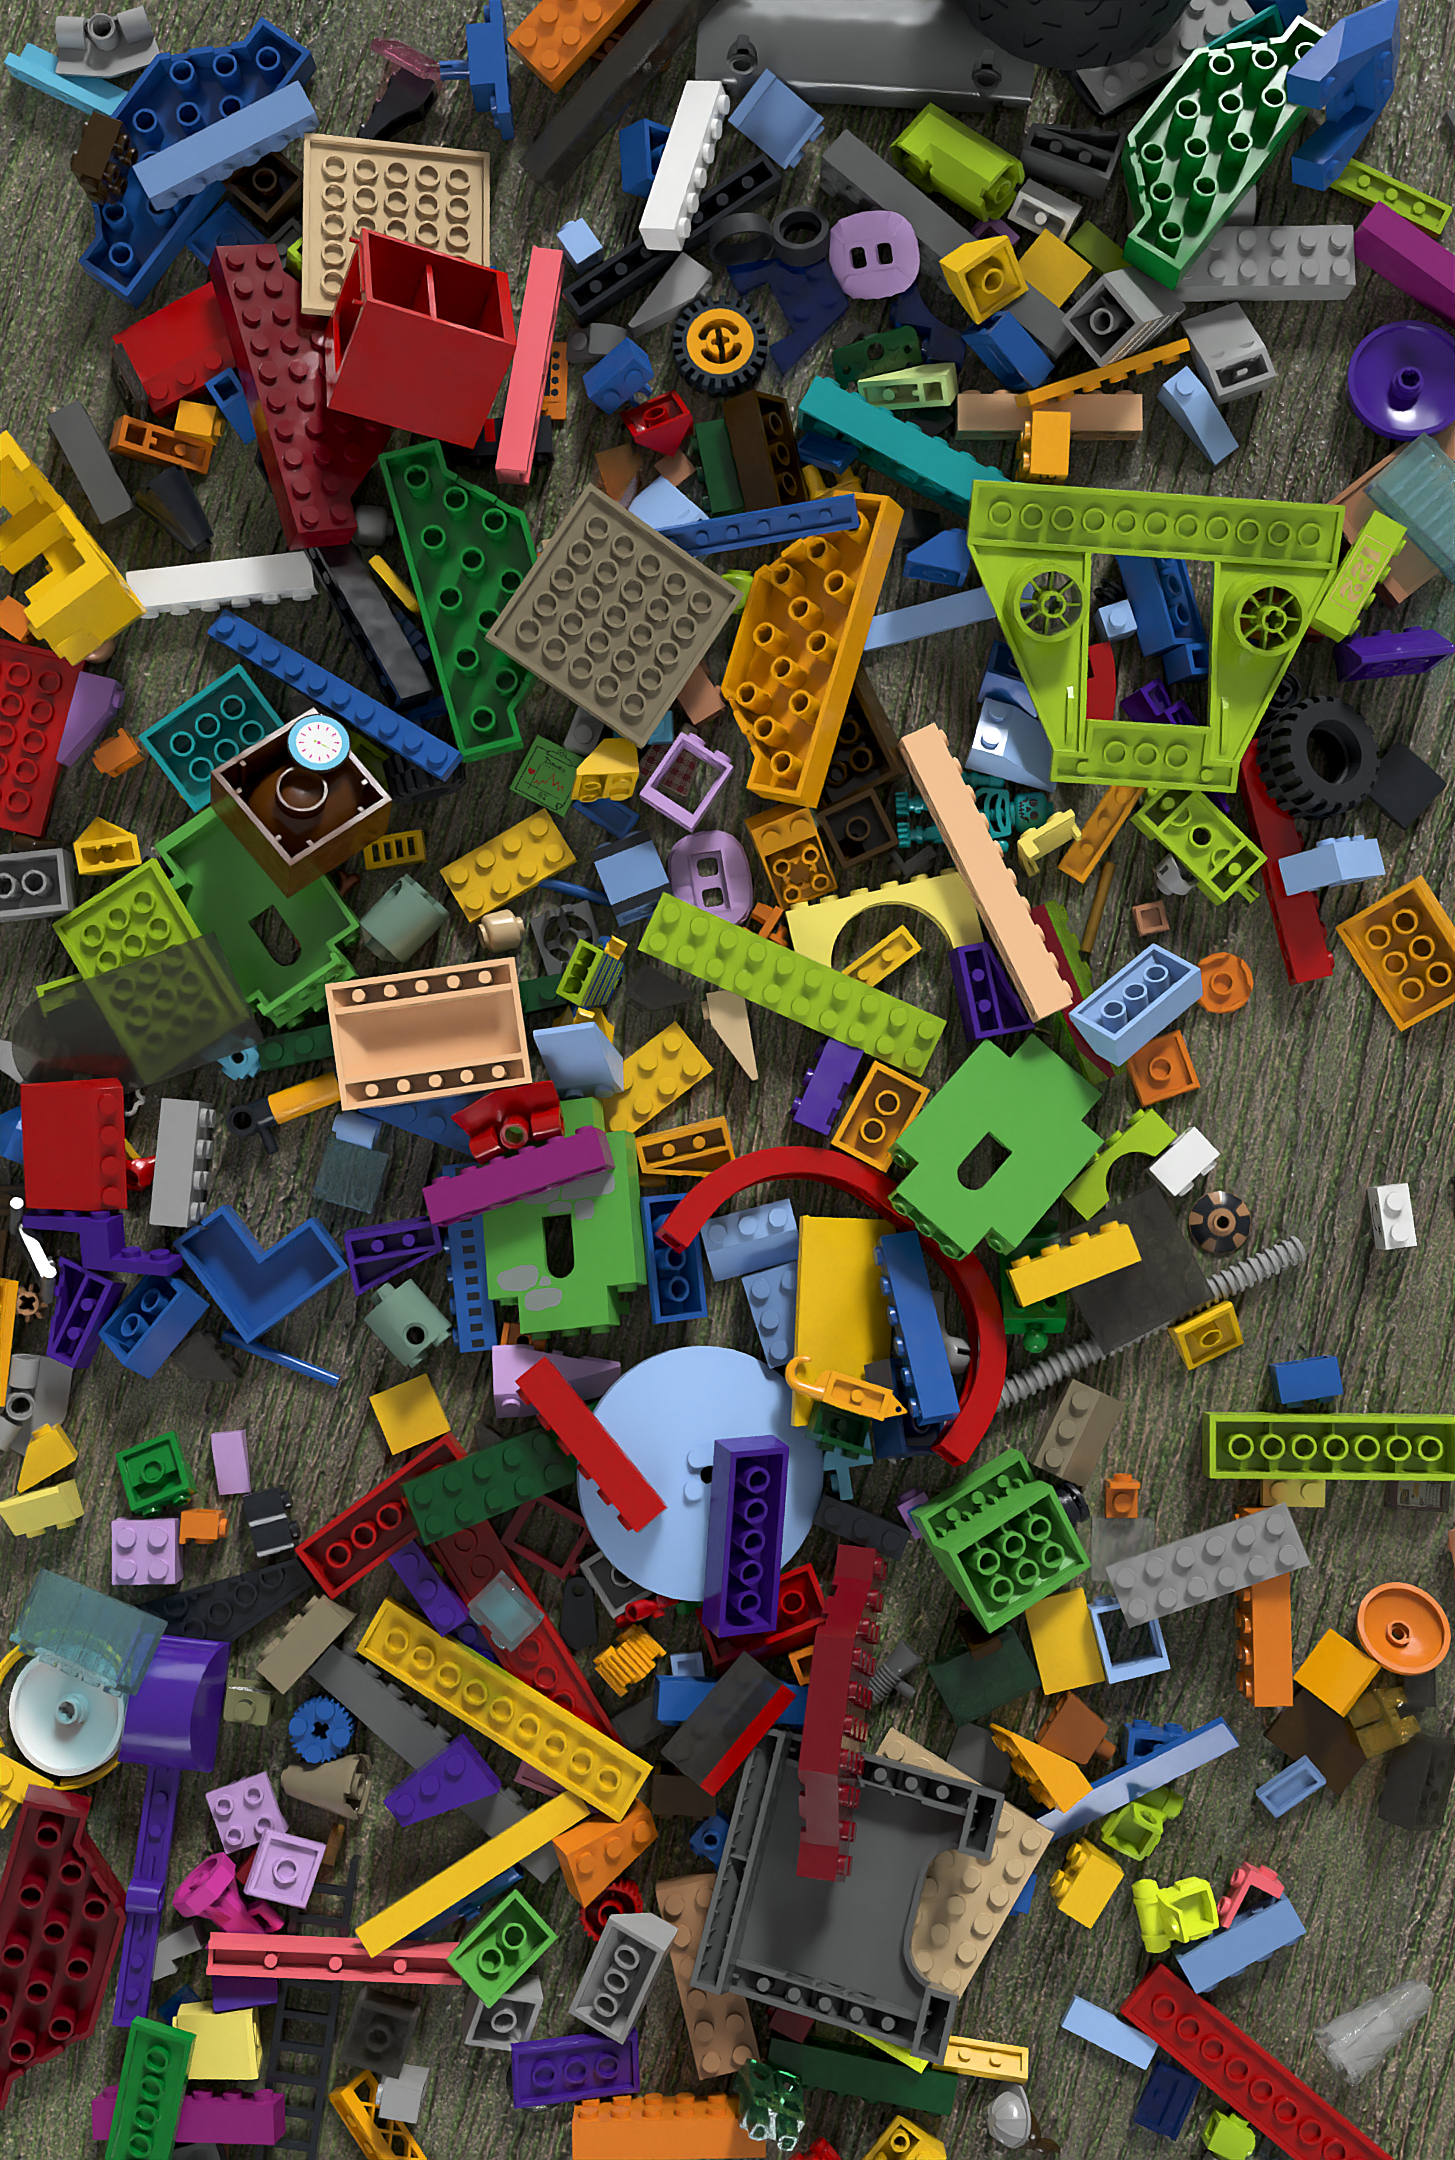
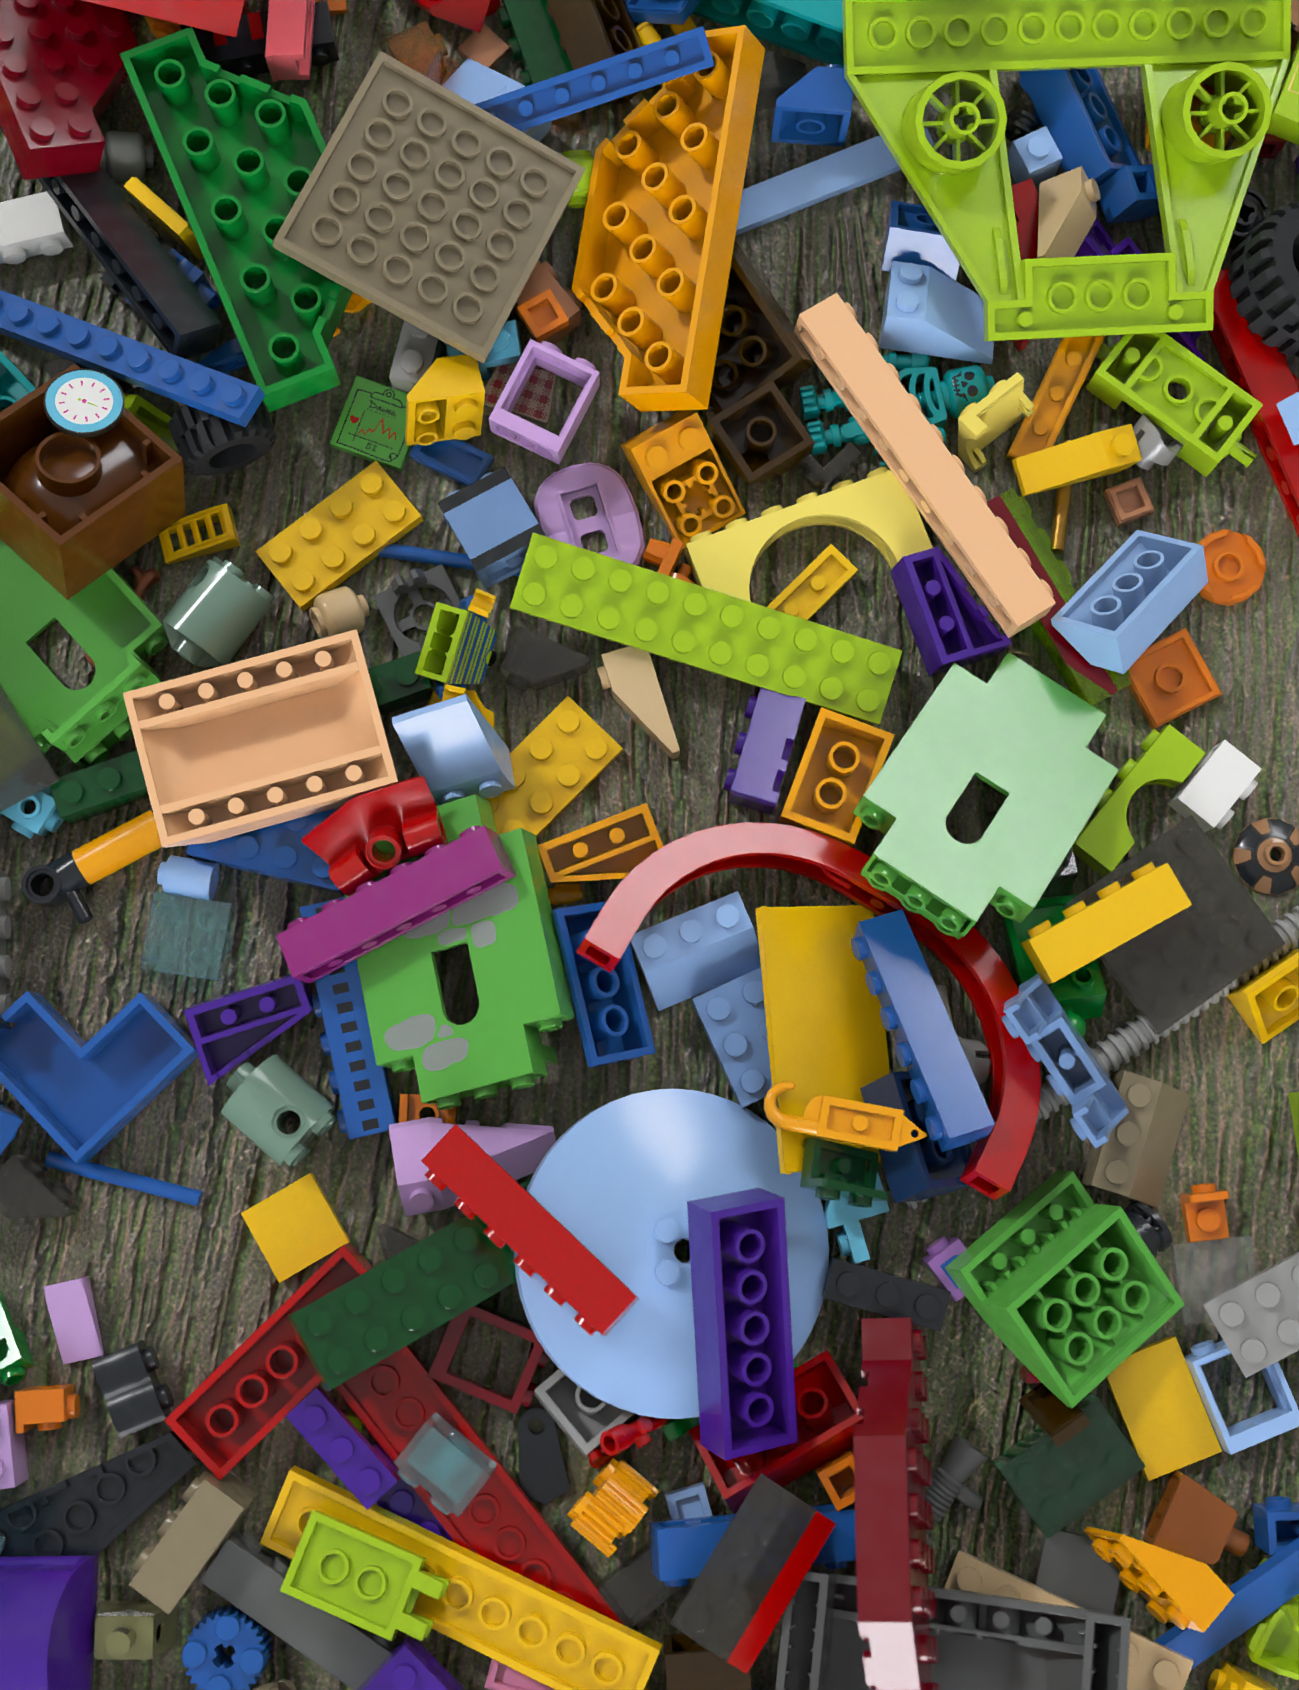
camera: 10 degrees left, 5 degrees down
(431, 1687) = (361, 1578): none -> lime tile
(694, 710) = (543, 315): none -> orange plate
(1031, 1376) = (1072, 1066): none -> medium blue bracket
(1111, 882) = (1077, 460): none -> yellow slope
(1131, 679) = (1065, 213): none -> tan slope

